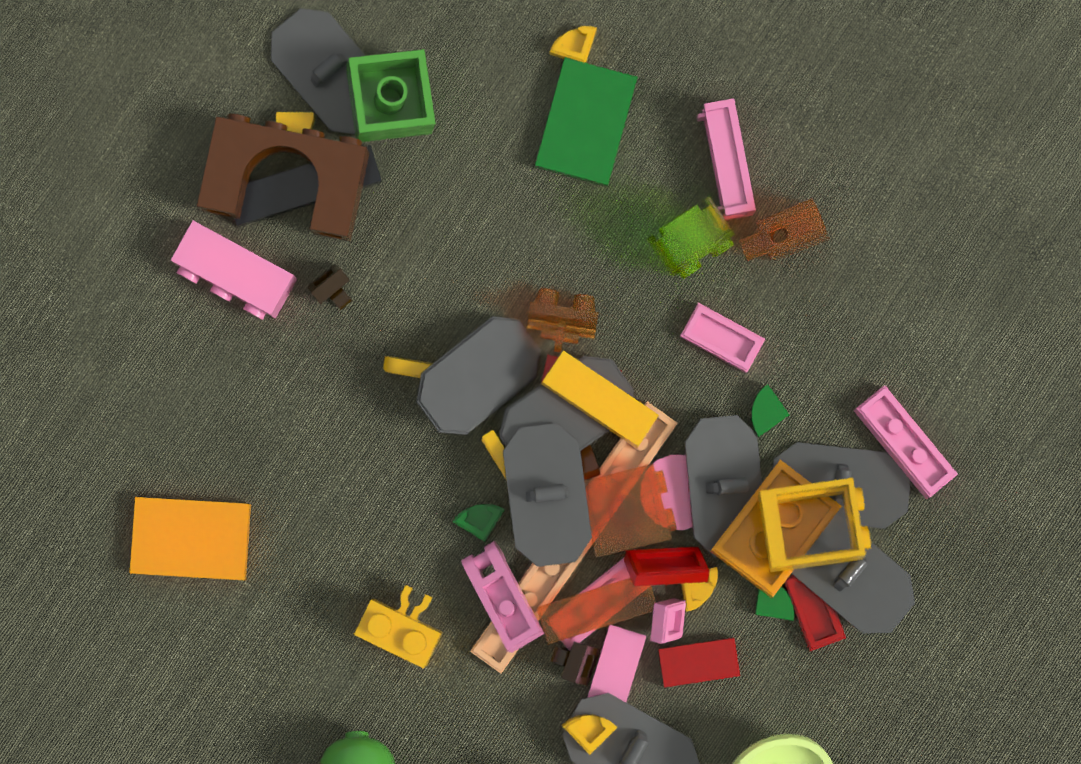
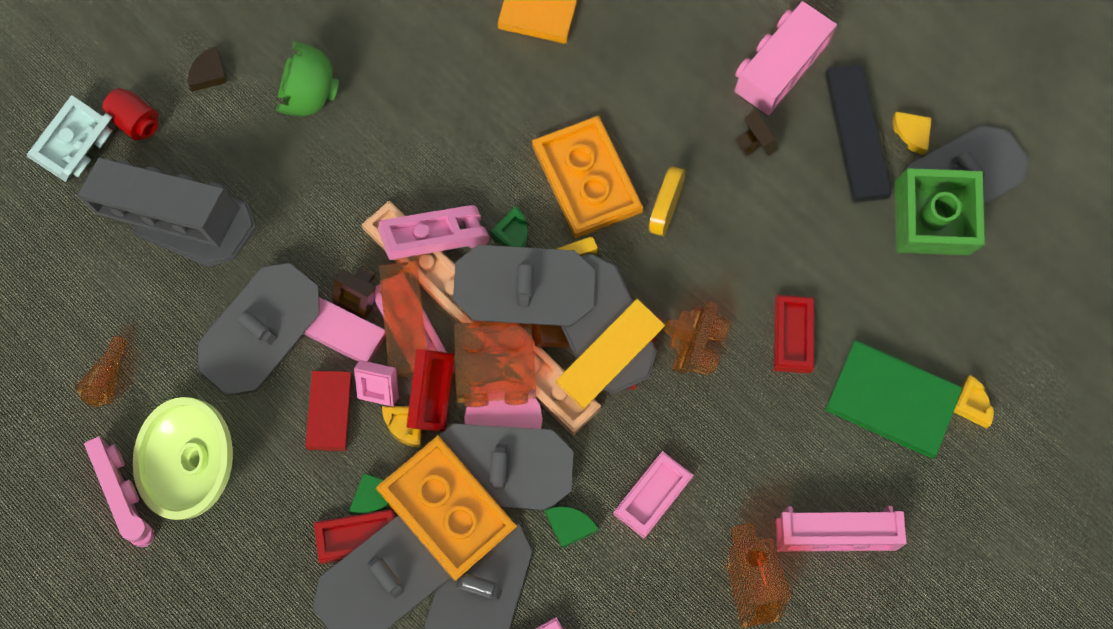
camera: 90 degrees right, 15 degrees down
(240, 146) = (899, 74): reddish brown arch -> none
(399, 632) = (422, 139): yellow brick -> none
(400, 459) = (587, 176): none -> light orange tile
(478, 375) = (653, 248): dark grey shield -> none
(536, 225) = (793, 334): none -> red tile
(589, 730) = (286, 286): yellow tile -> none
(691, 238) = (763, 473): clear neon green brick -> none
(853, 503) = (442, 495): yellow window -> none

